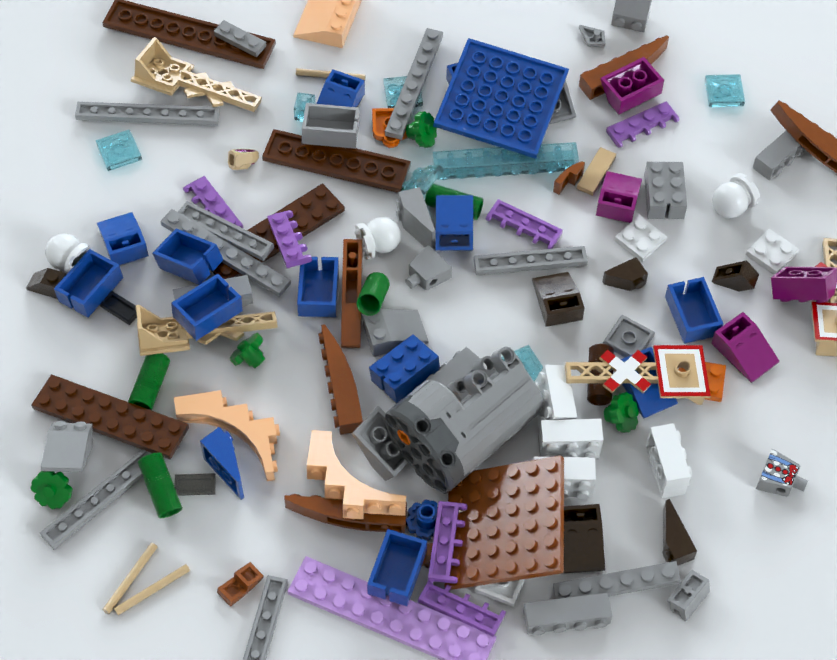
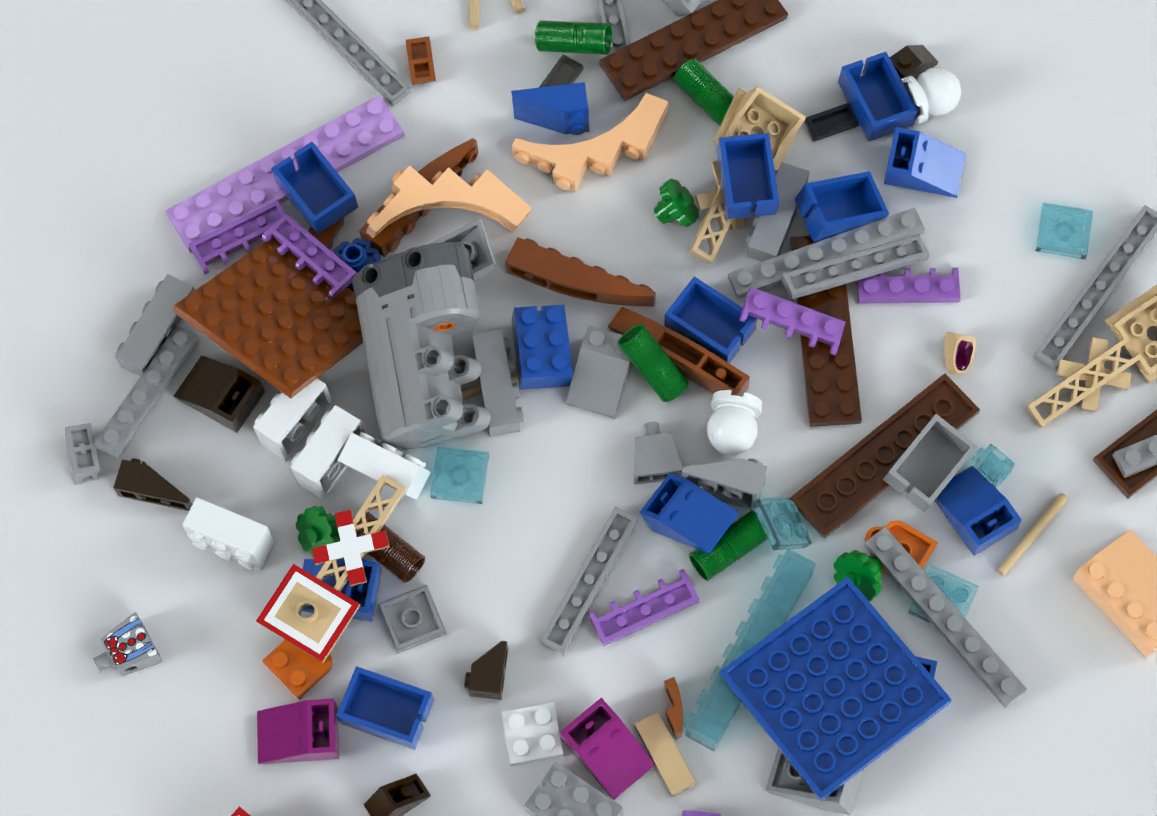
camera: 130 degrees right, 10 degrees up
(558, 299) = (516, 572): dark brown slope -> none

